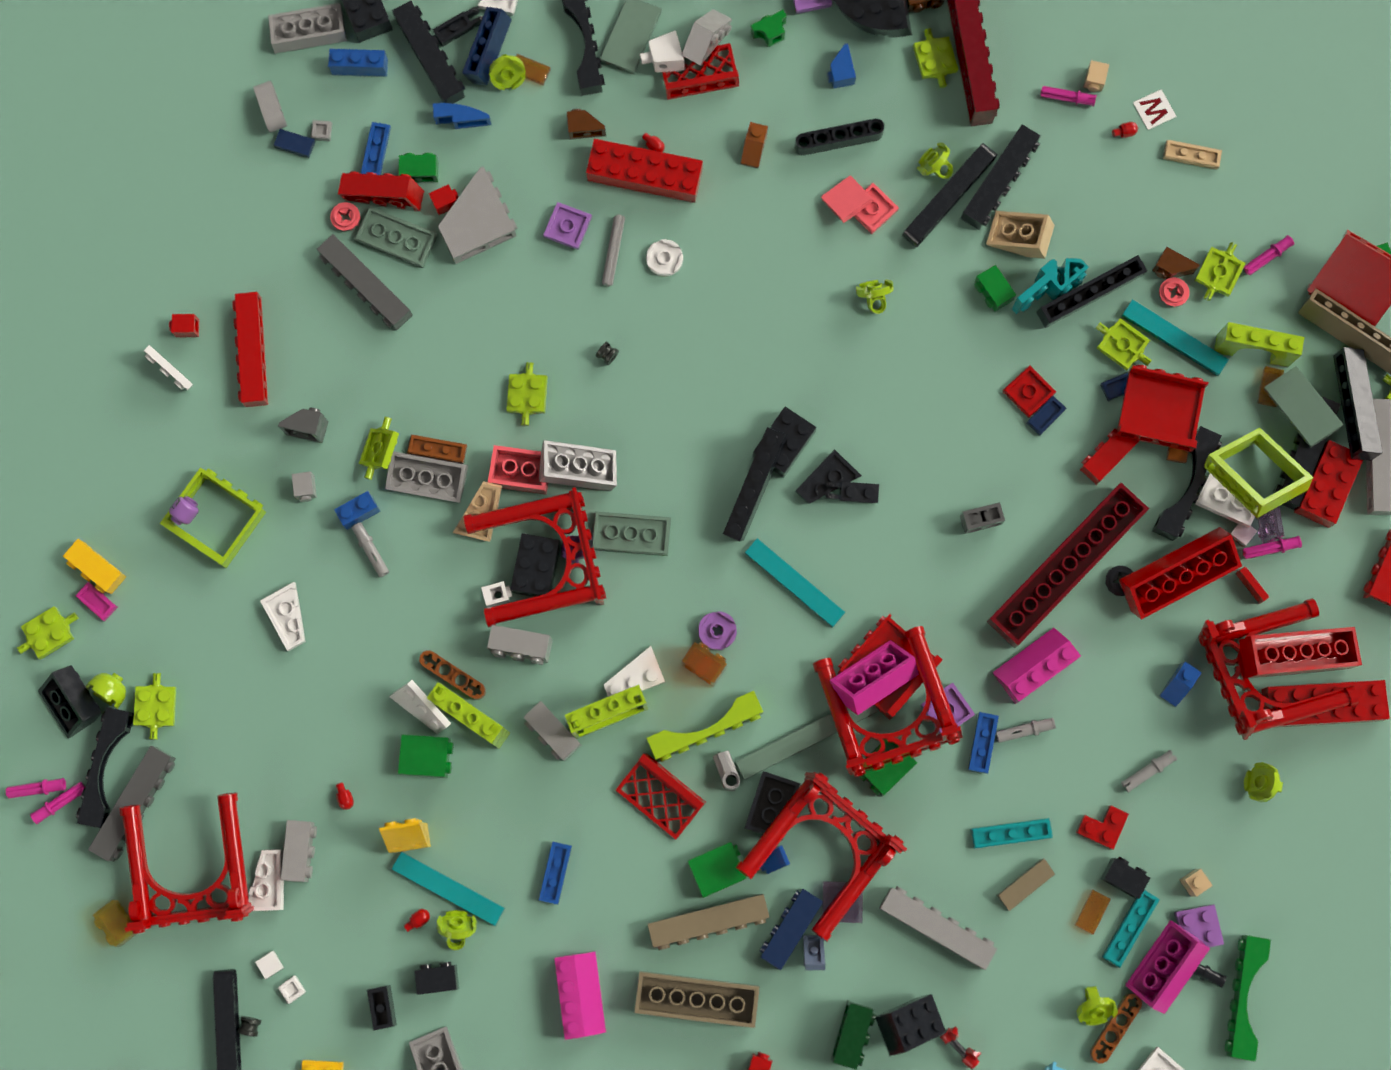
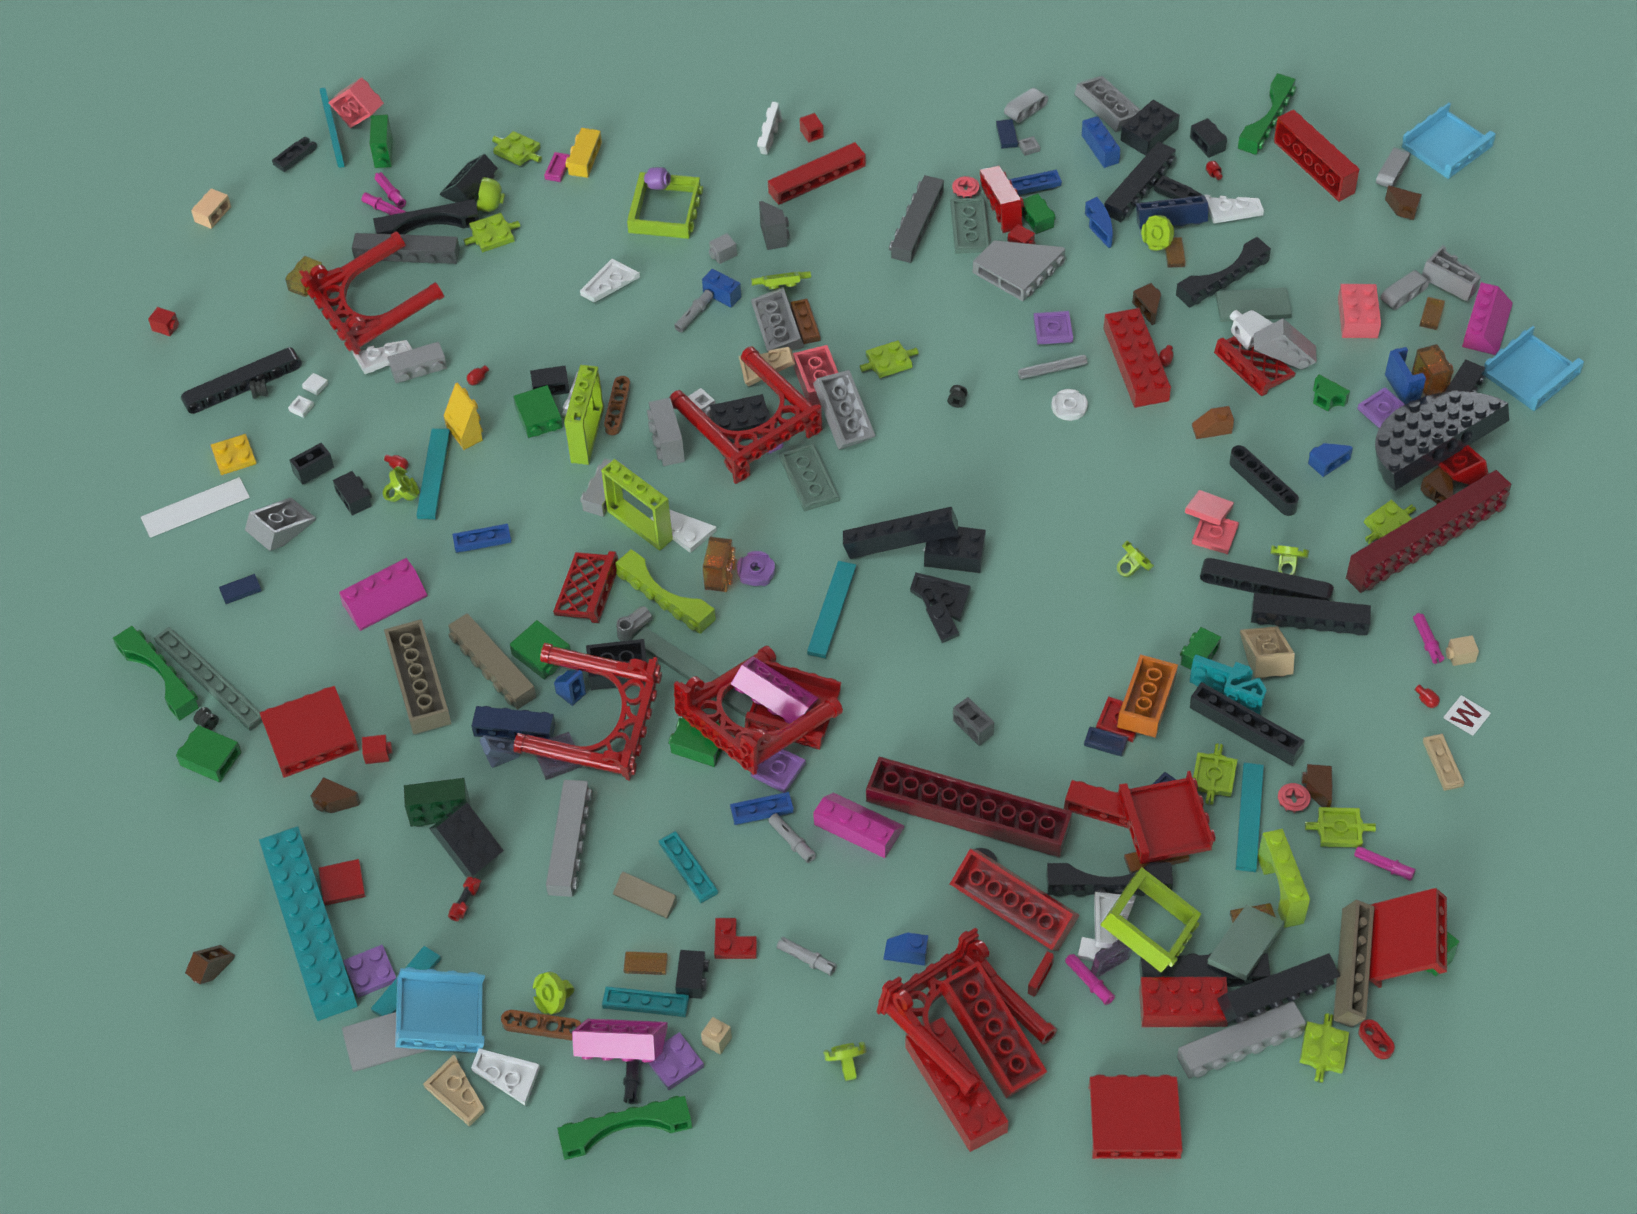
camera: 65 degrees right, 25 degrees down
(391, 727) = (554, 377): none -> black brick
(1027, 357) = (1147, 696): none -> orange brick

